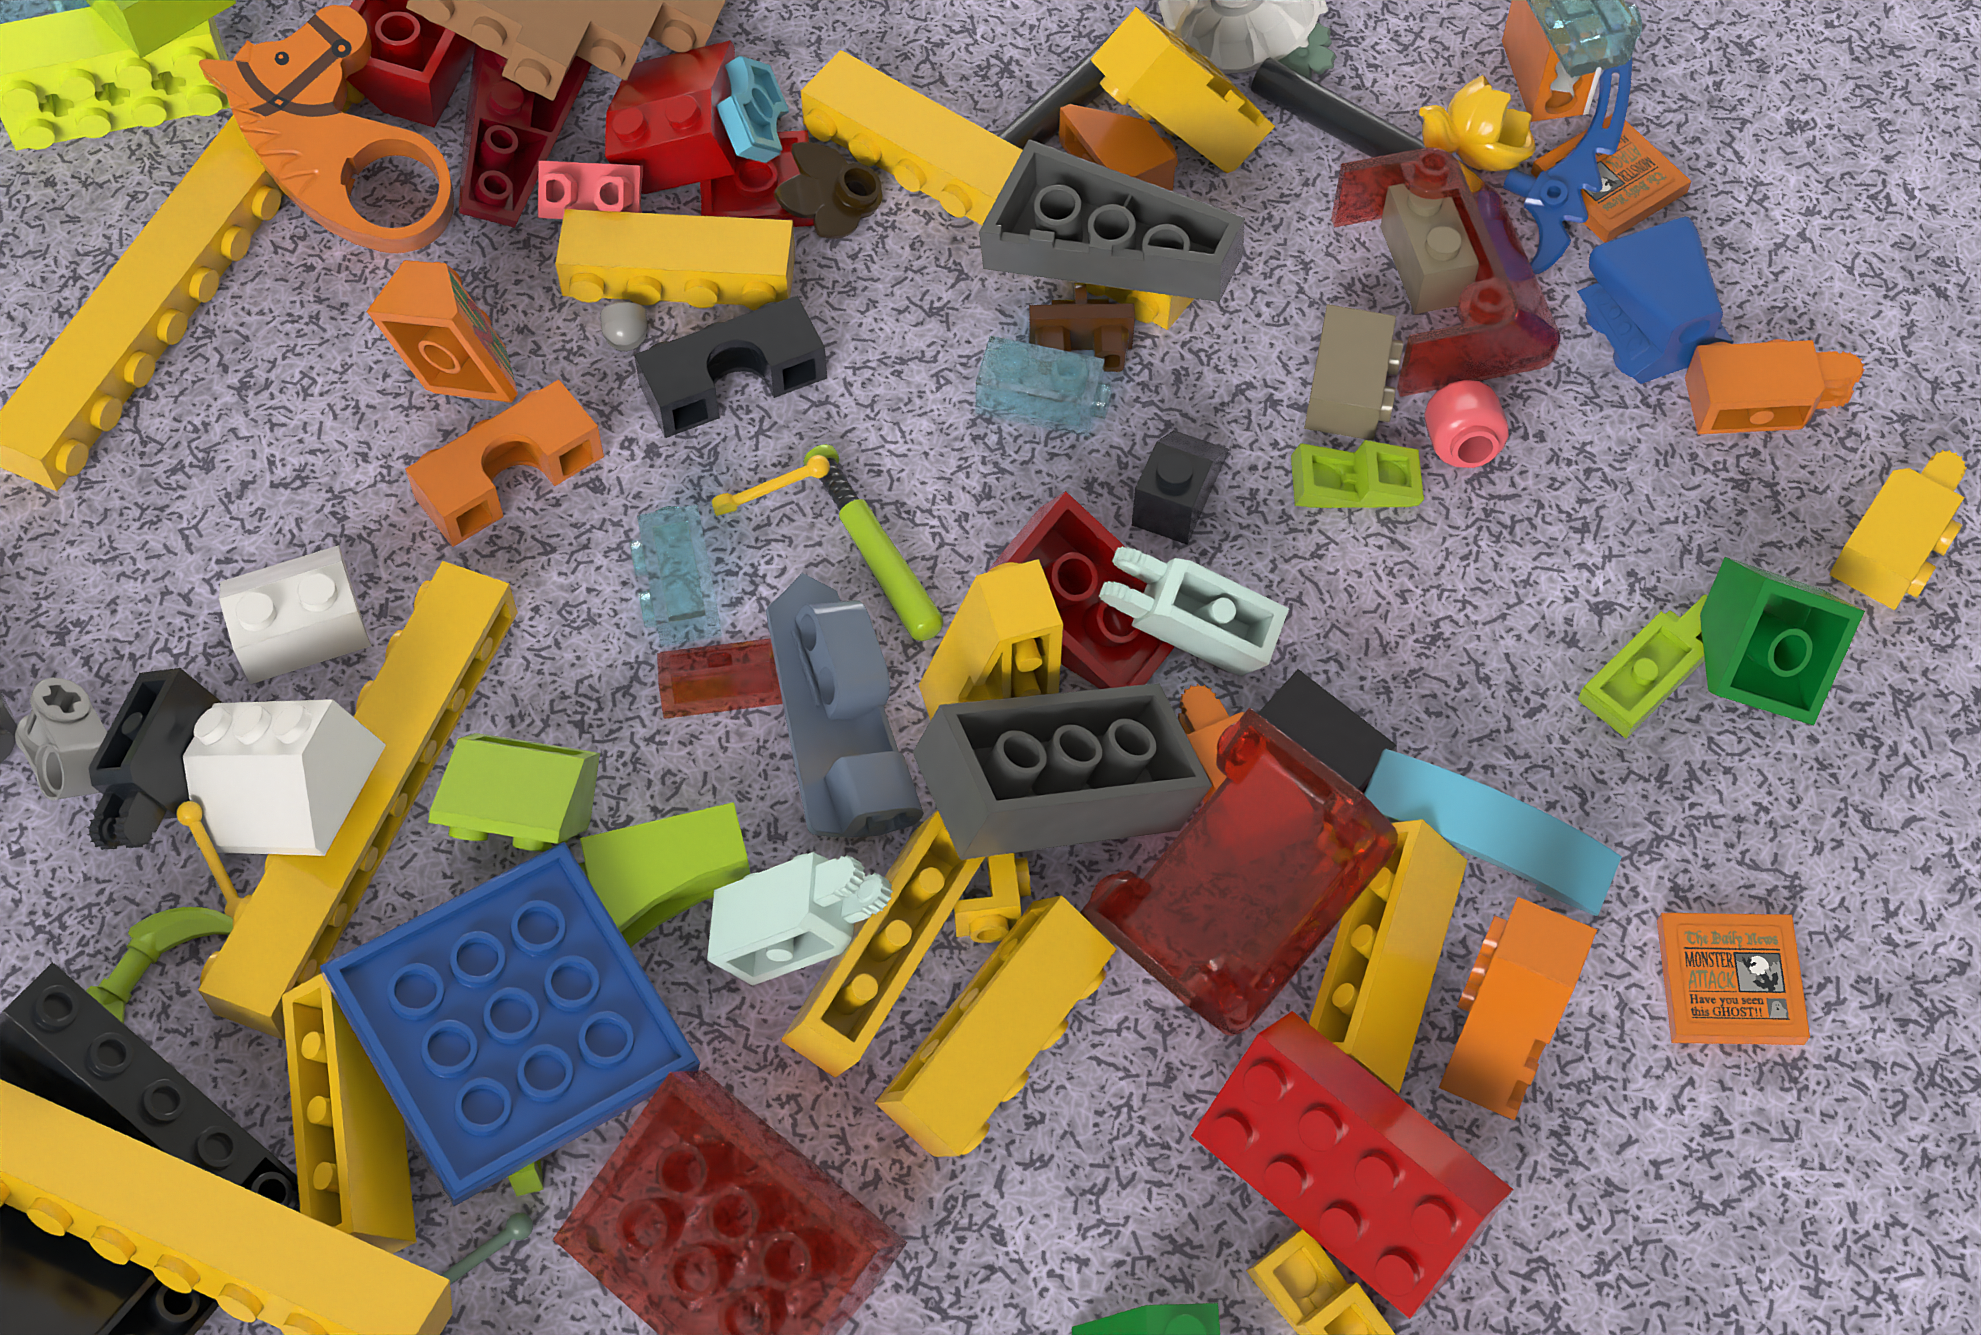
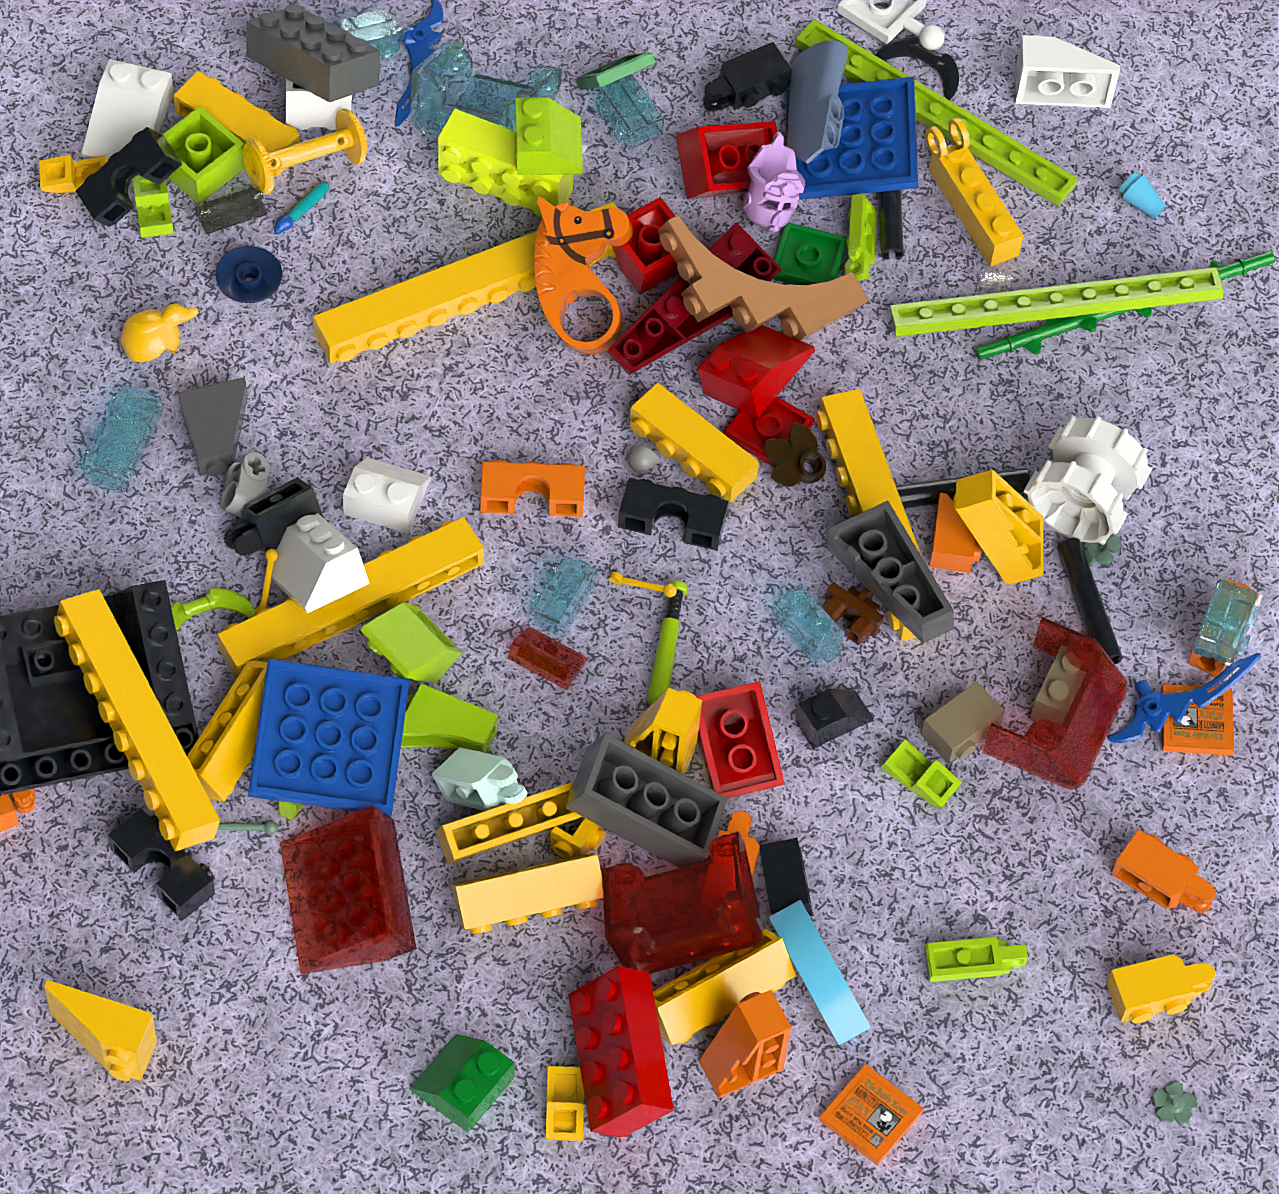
camera: 35 degrees right, 0 degrees up
(443, 333) = (551, 407): orange slope -> none
(588, 187) = (679, 379): coral hips -> none
(753, 109) = (785, 395): medium azure tile -> none
(836, 716) = (579, 708): sand blue panel -> none
(1198, 611) = (775, 779): light aqua hinge -> none
(1466, 424) = (994, 787): coral head -> none
(1480, 128) = (1145, 647): yellow hair -> none
(1654, 299) = (1146, 793): blue piece -> none
(1774, 640) = (1032, 986): green slope -> none

